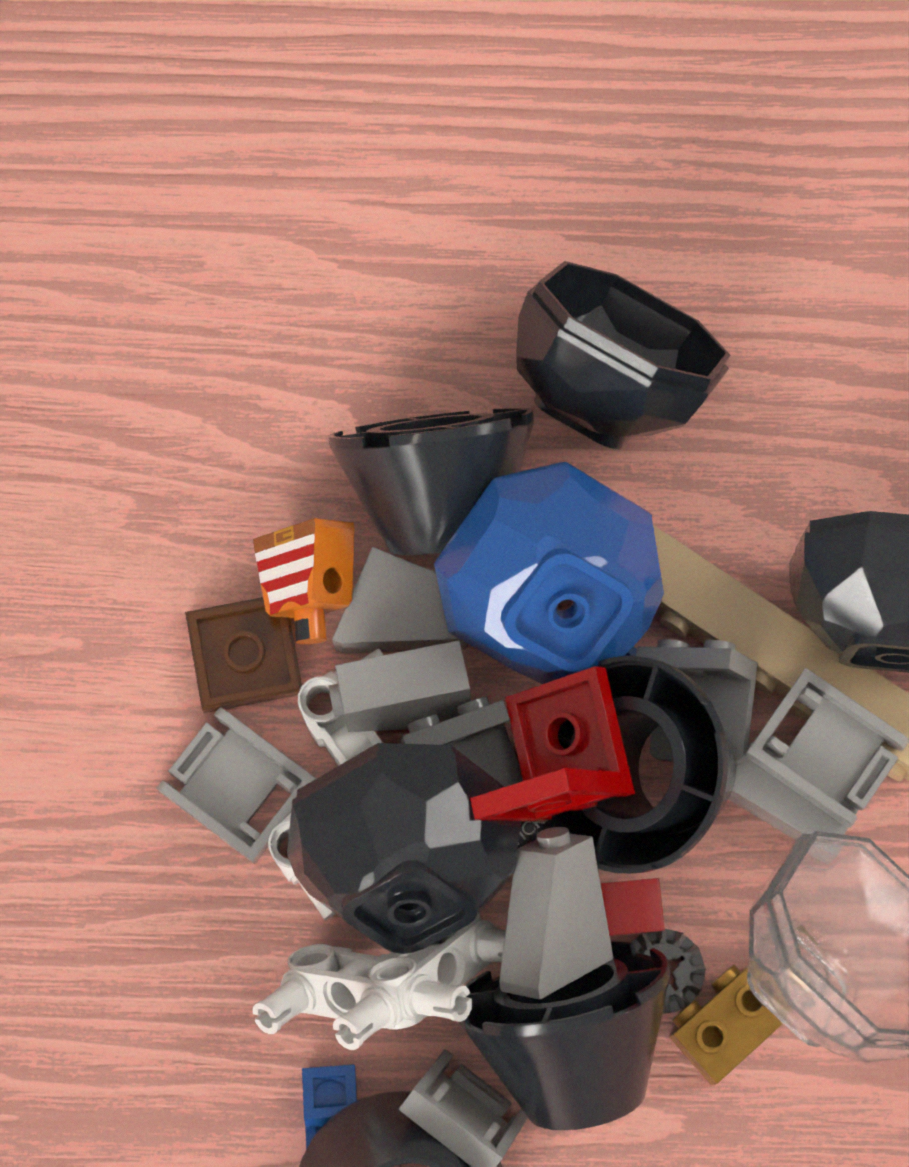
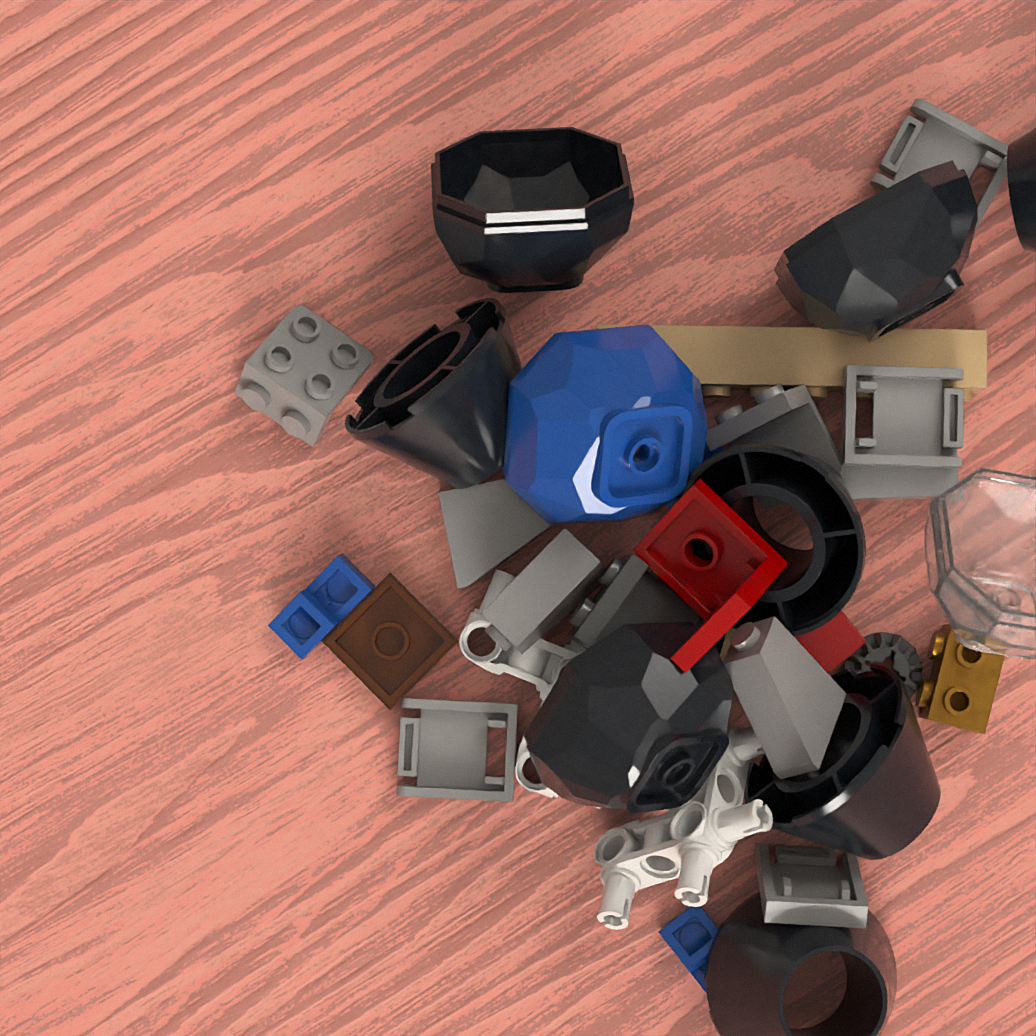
camera: 30 degrees left, 10 degrees up
(204, 583) = (321, 606): none -> blue slope
(307, 573) = (401, 549): torso -> none
(326, 377) = (302, 373): none -> light grey bracket

